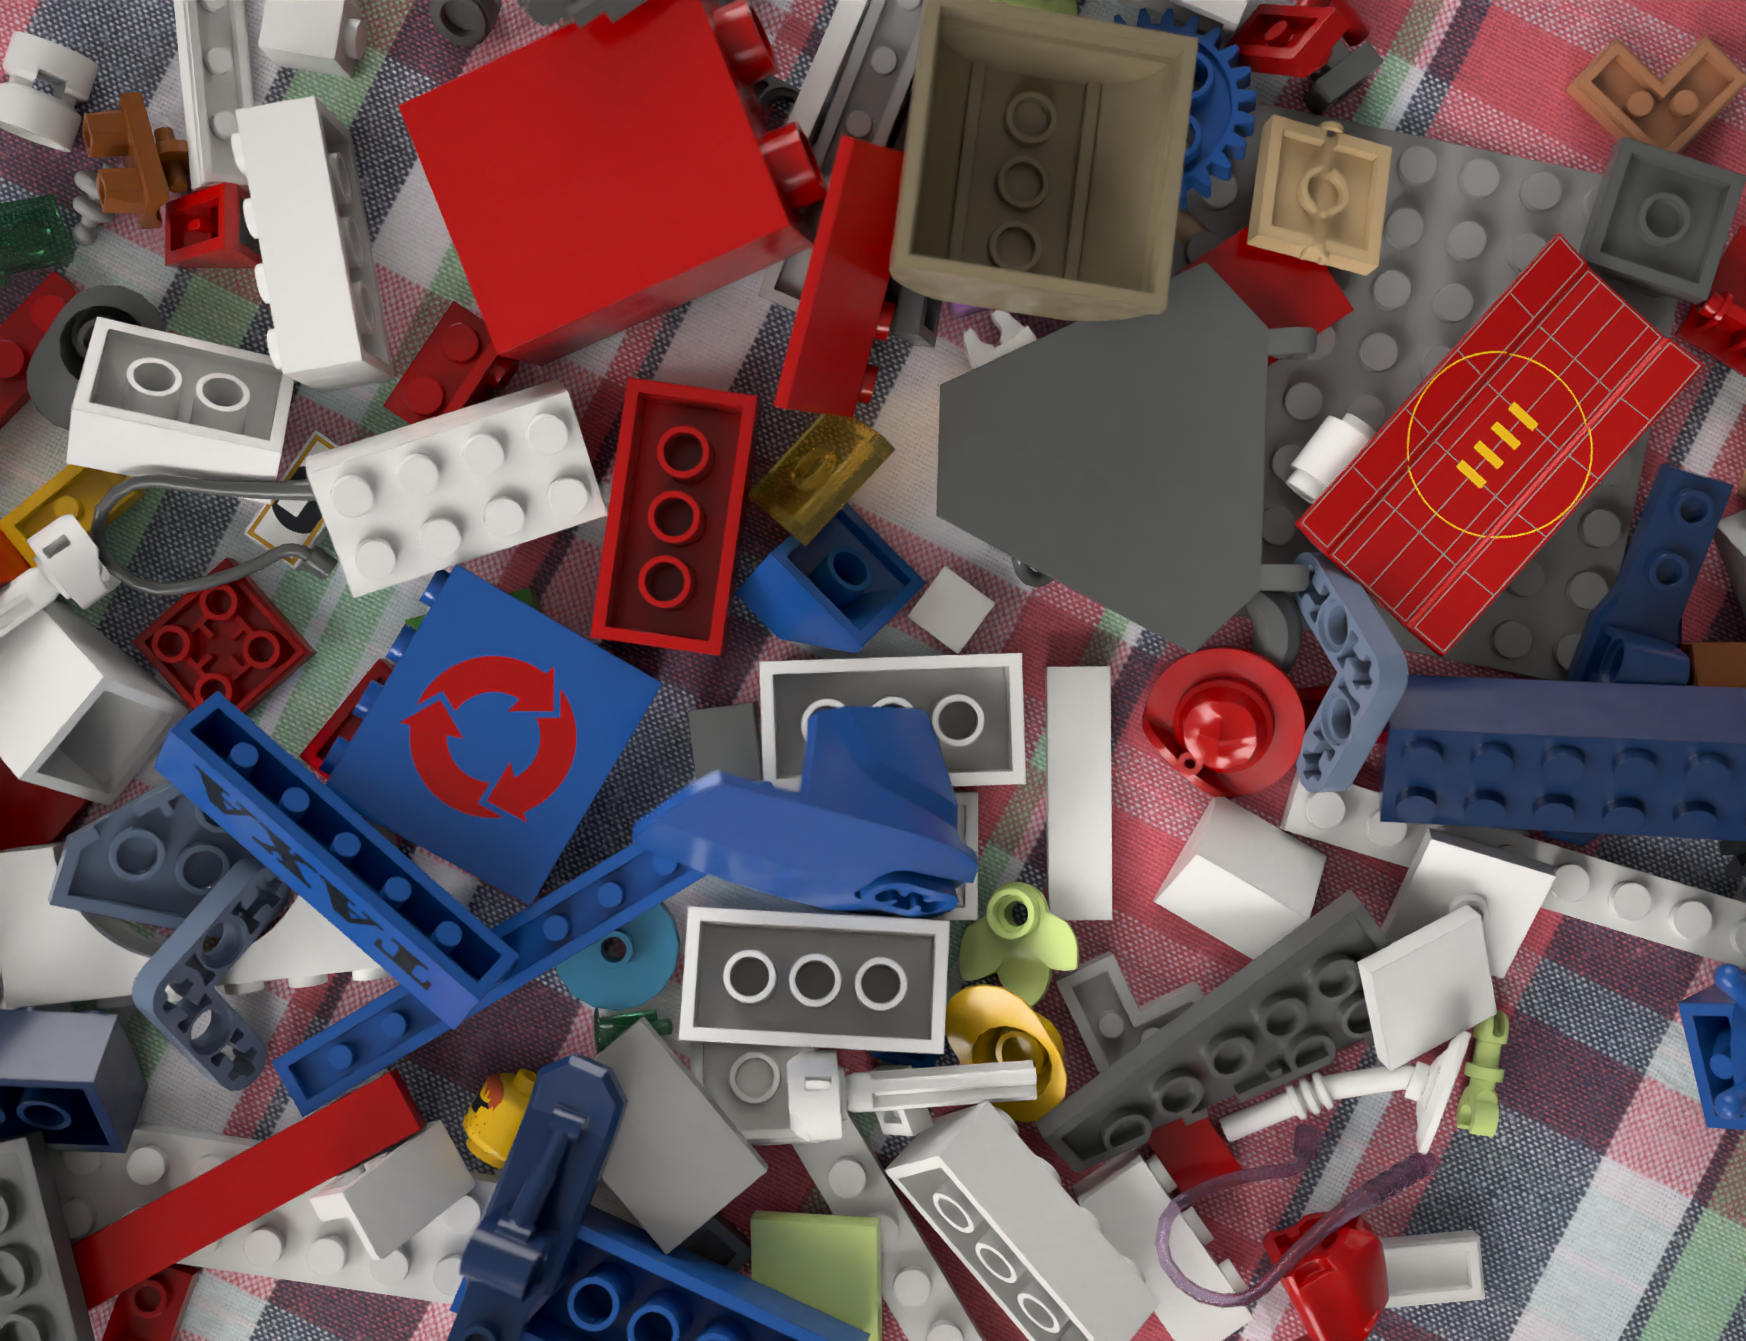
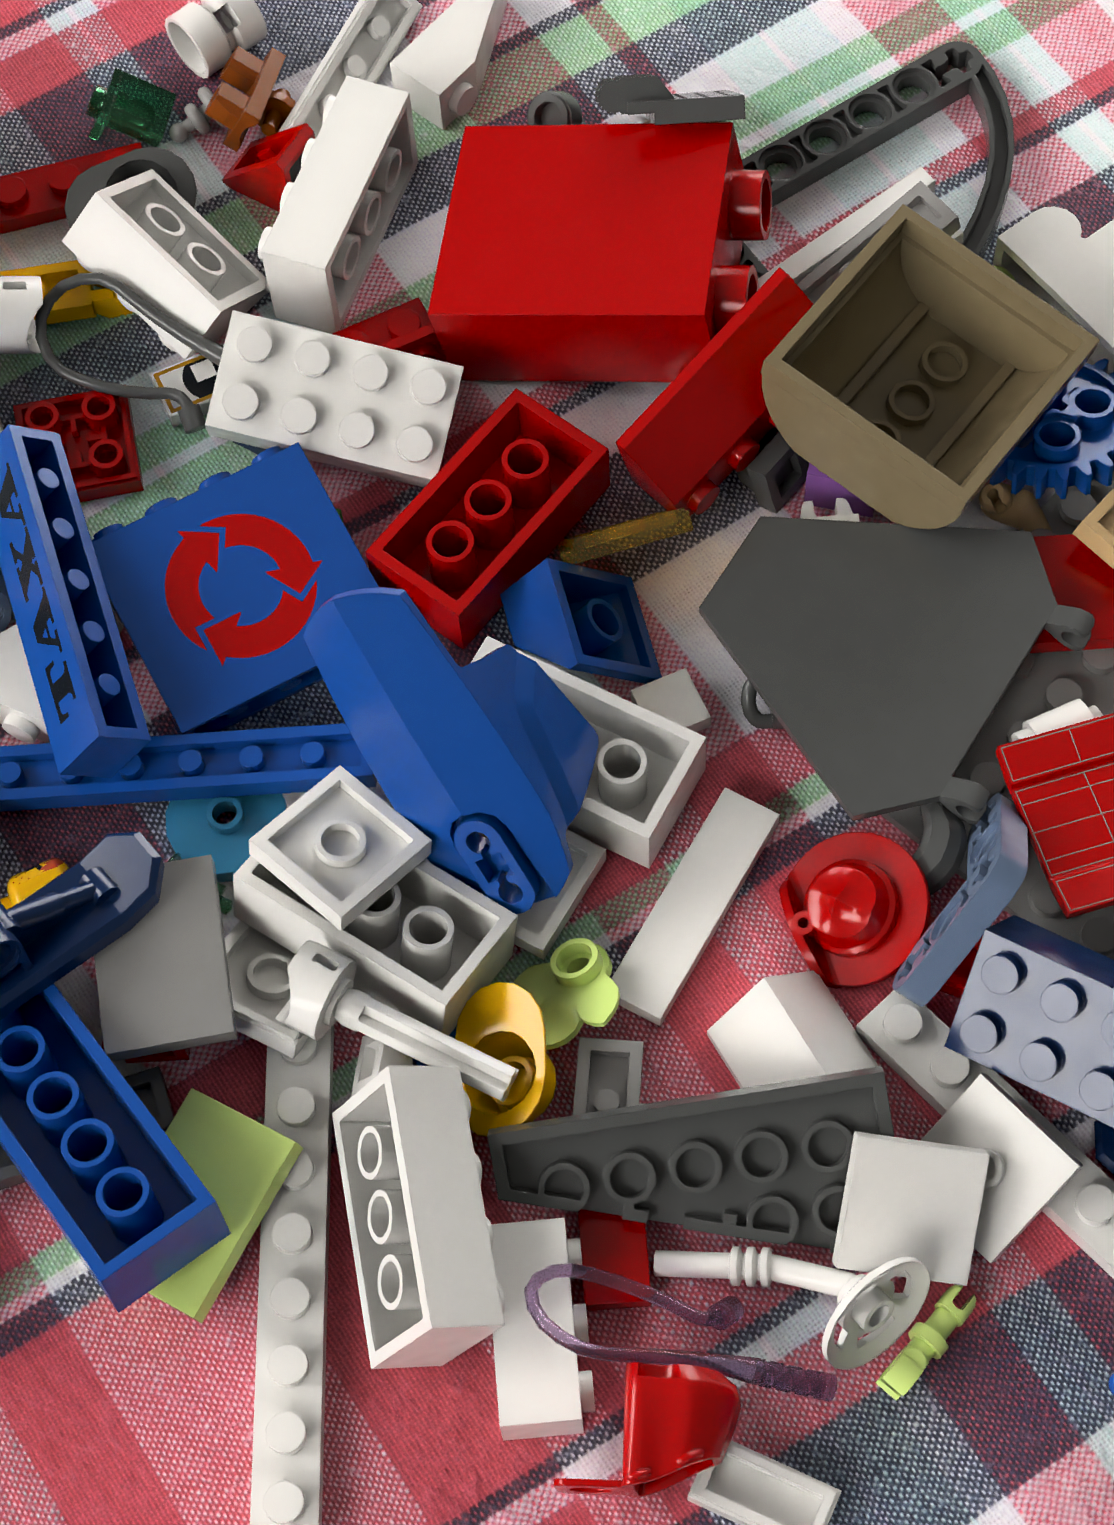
camera: 30 degrees right, 25 degrees down
(760, 962) = (340, 847): none -> white plate

